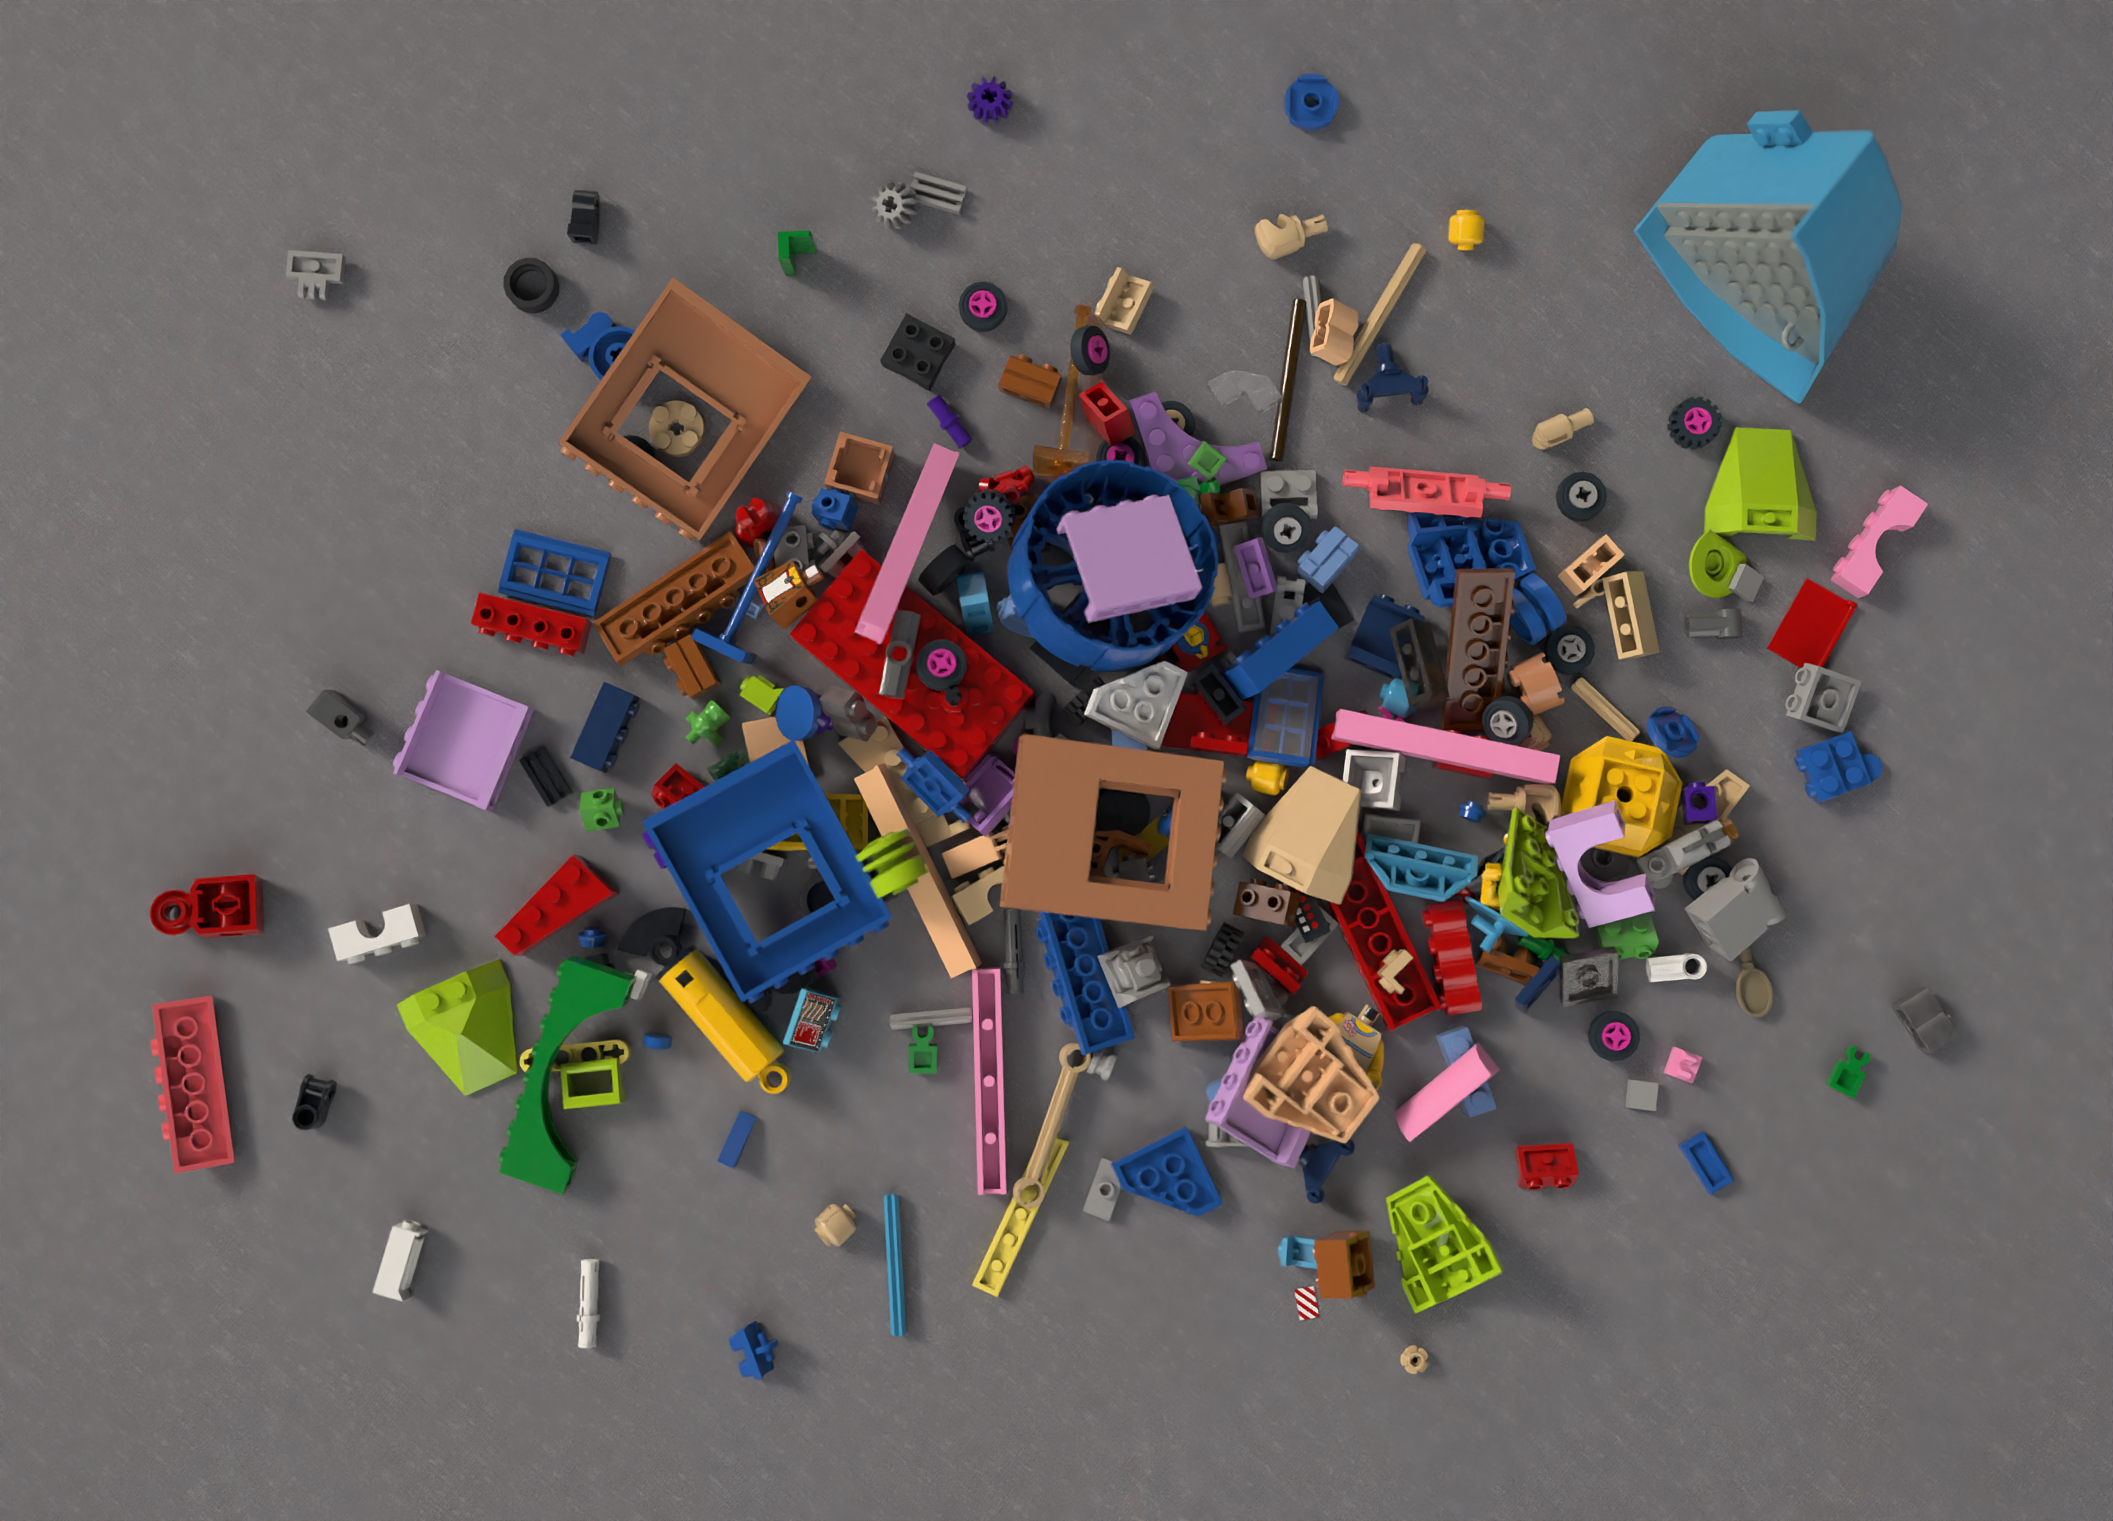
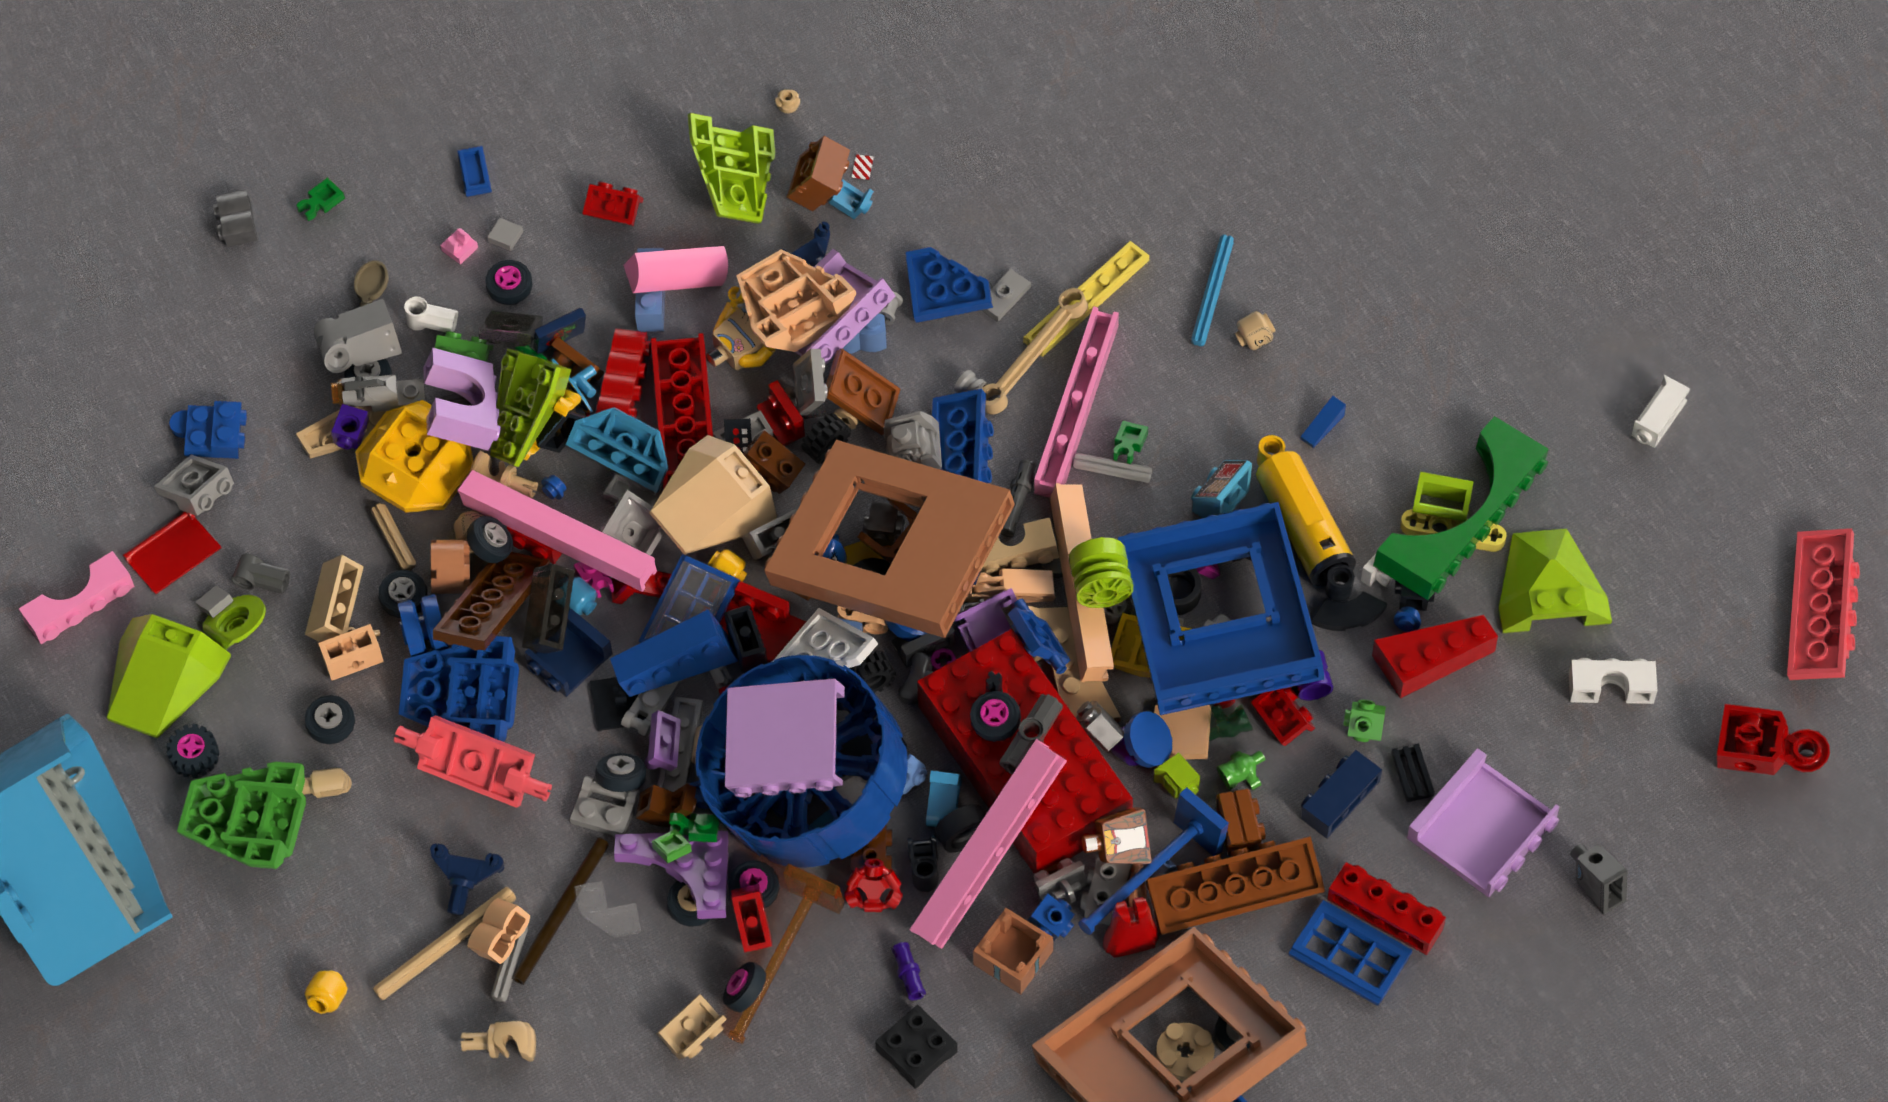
camera: 160 degrees left, 25 degrees down
(313, 1100) = (1707, 561): black piece -> none
(588, 1303) = (1499, 327): white pin -> none
(657, 1040) = (1371, 518): blue tile -> none
(756, 1349) = (1355, 258): blue hips -> none
(981, 296) = (835, 1058): black wheel -> none
(985, 524) = (901, 850): black wheel -> none
(1030, 381) = (814, 982): dark orange brick -> none
(1327, 559) = (592, 734): medium blue brick -> none
(1393, 964) = (680, 374): tan bracket -> none
(1613, 366) = (248, 813): none -> bright green wedge
(1672, 732) = (343, 495): blue tile -> none

